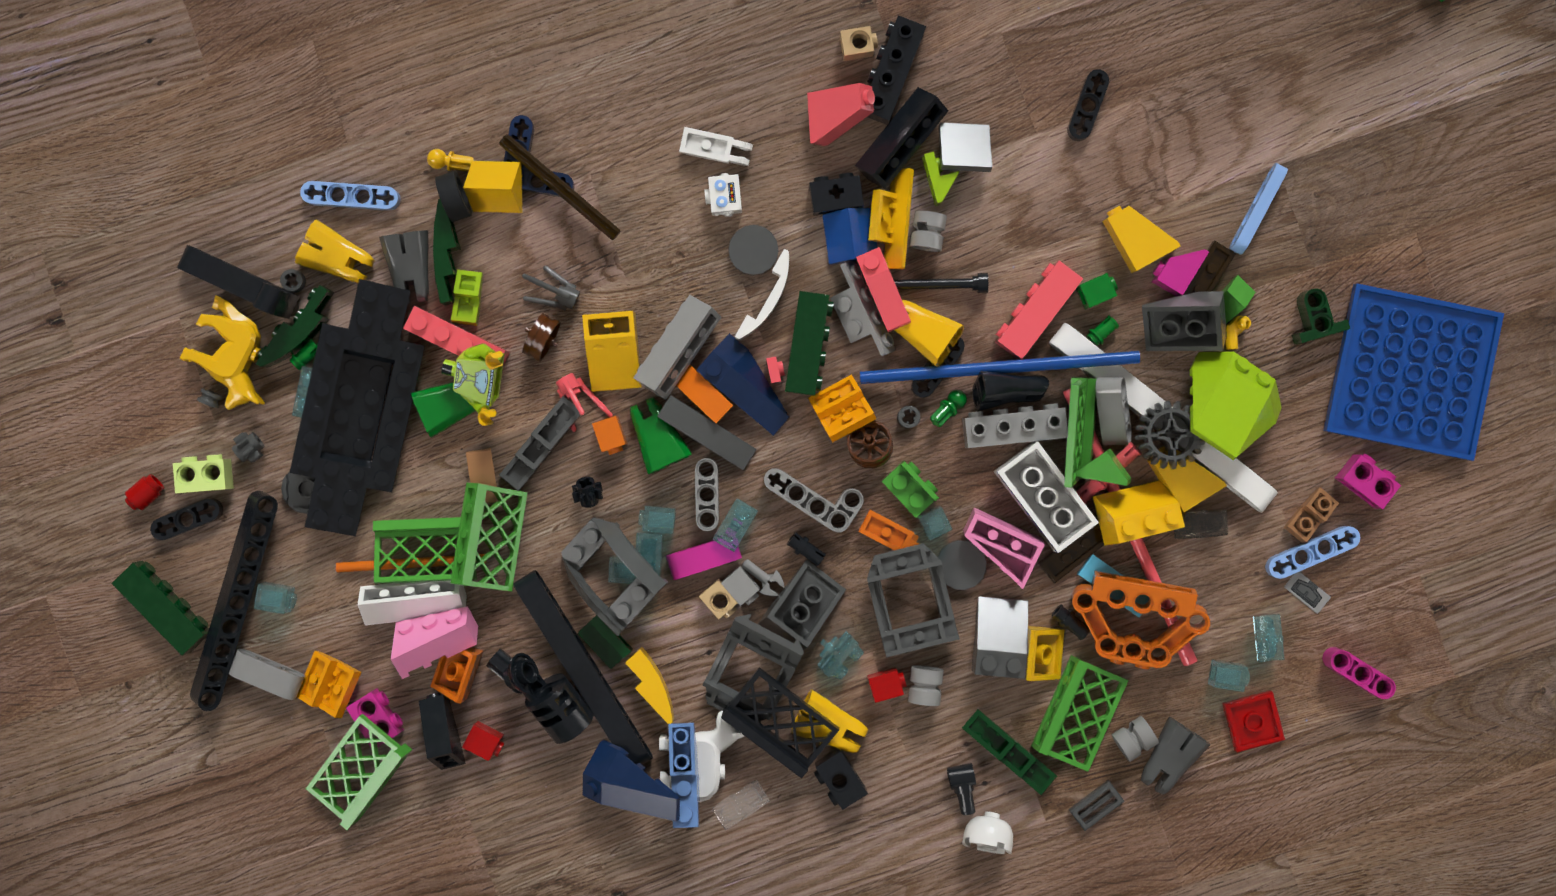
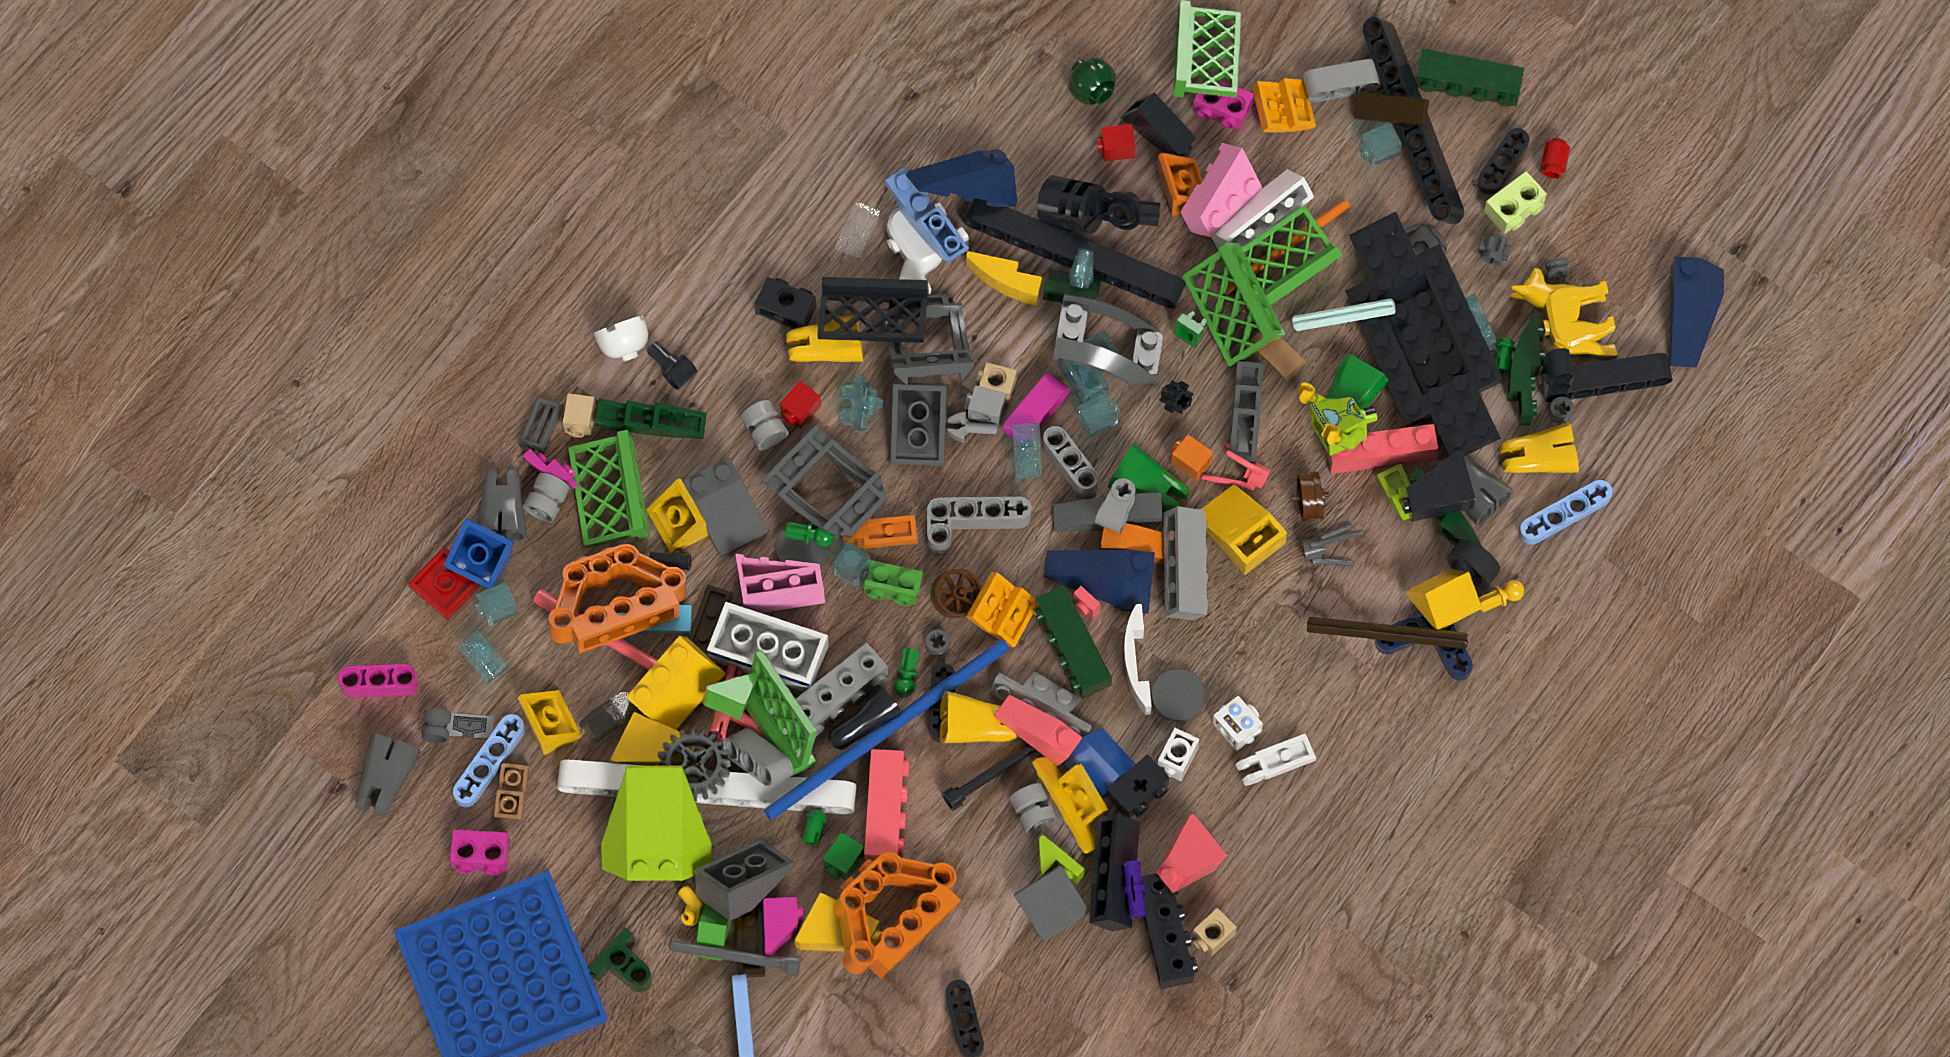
camera: 145 degrees right, 20 degrees down
(124, 298) = (1695, 299): none -> dark blue wedge
(244, 618) = (1391, 109): none -> dark brown tile
(407, 470) = (1343, 314): none -> light aqua axle
(437, 267) = (1440, 490): none -> black slope
(467, 808) = (1092, 78): none -> dark green plant
(538, 542) = (1189, 330): none -> green tile
(589, 646) = (1082, 269): none -> clear light blue cone
(706, 422) = (1116, 509): none -> light grey piece
(793, 188) = (1184, 748): none -> white head
(805, 548) = (950, 473): black pin -> none
(899, 109) = (1134, 889): none -> dark purple pin
(954, 572) = (805, 533): none -> green axle
(1064, 792) = (579, 415): none -> tan brick
(1099, 185) = (904, 874): none -> orange brick
(1112, 752) = (542, 465): none -> dark pink slope
(1194, 234) = (788, 964): none -> dark grey piece
(1220, 723) = (479, 554): none -> blue slope
(1249, 553) = (549, 720): none -> yellow slope
(1337, 606) = (436, 725): none -> dark grey wheel
(1399, 595) = (384, 772): none -> dark grey piece

